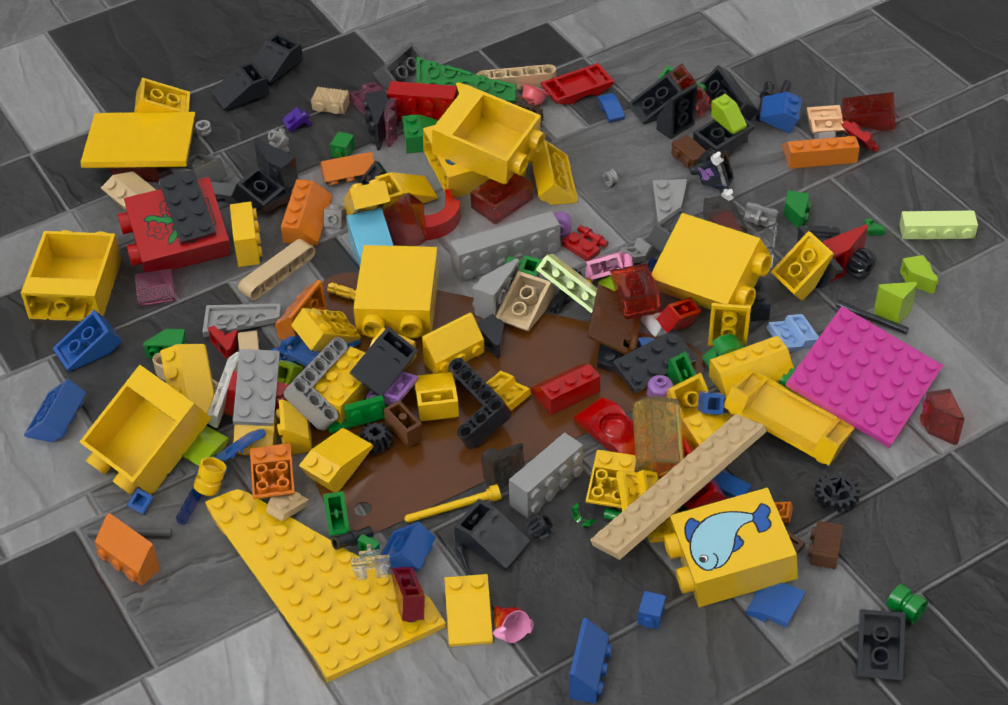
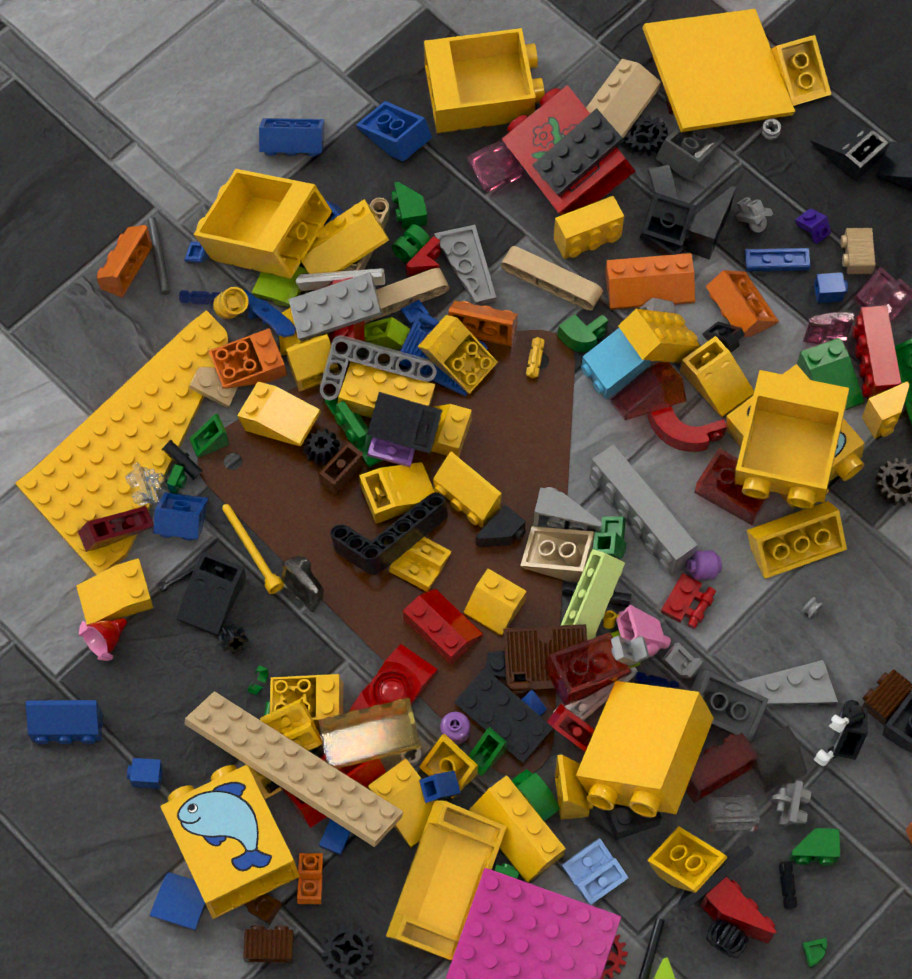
camera: 75 degrees right, 20 degrees up
(213, 348) = (413, 241): none -> green wheel
(316, 146) = (777, 259): none -> blue tile
(336, 260) = (579, 336): none -> green brick
(342, 145) = (778, 287): green brick -> none
(354, 120) = (830, 287): none -> brick
(375, 107) = (843, 300): black slope -> none
(396, 290) = (534, 410): yellow brick -> none
(546, 475) = (297, 630): light grey brick -> none
(555, 348) = (495, 602): none -> yellow slope
(630, 256) = (629, 651): none -> light grey bracket

